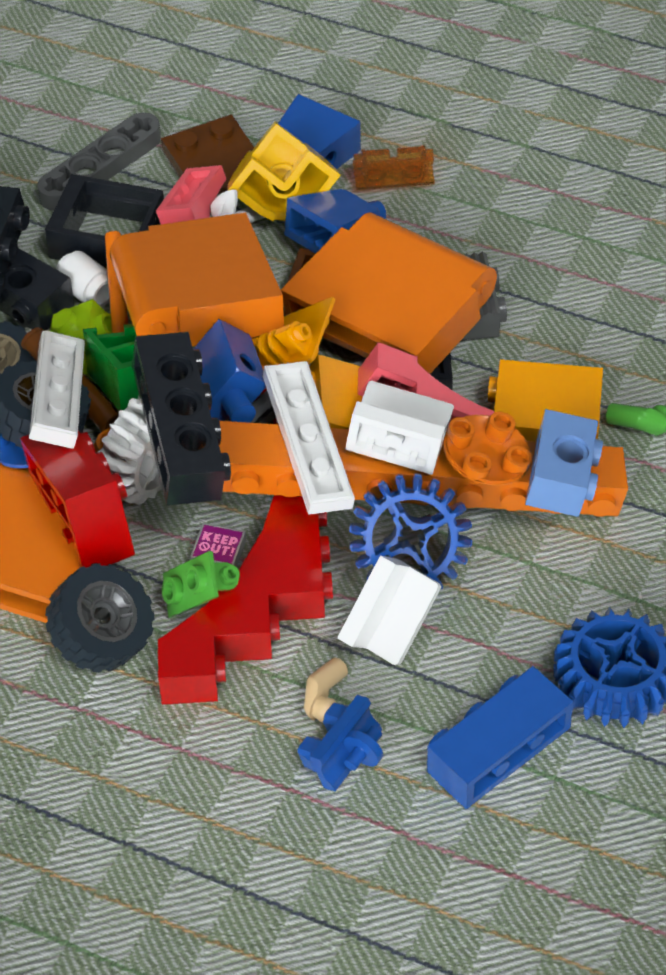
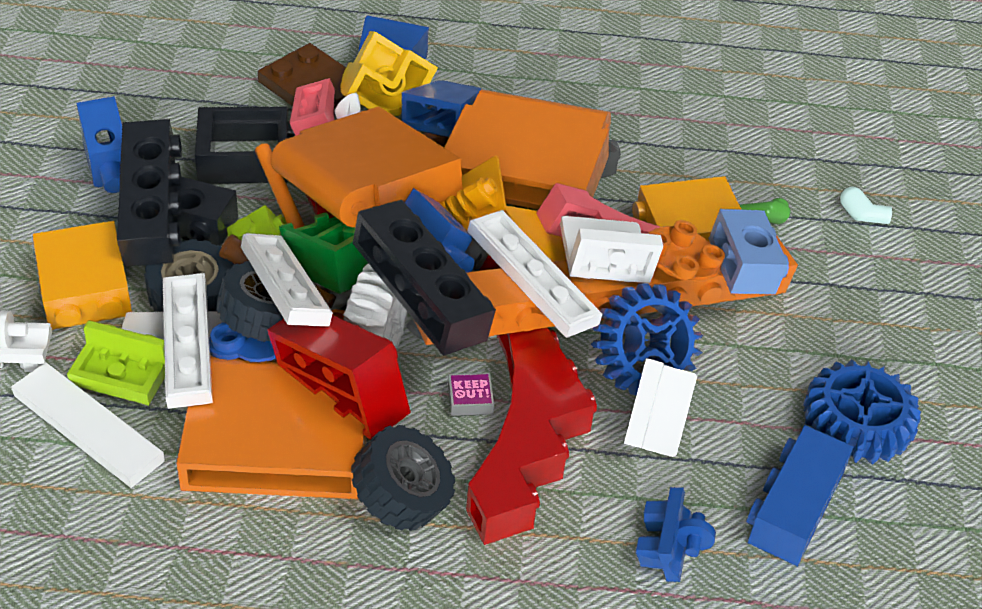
camera: 25 degrees left, 5 degrees down
(87, 277) = (250, 190): white brick -> none
(134, 135) = (203, 95): dark grey beam -> none
(197, 583) = (480, 425): bright green hinge -> none
(318, 687) = (622, 489): tan arm -> none
(378, 170) = (458, 64): clear orange hinge -> none

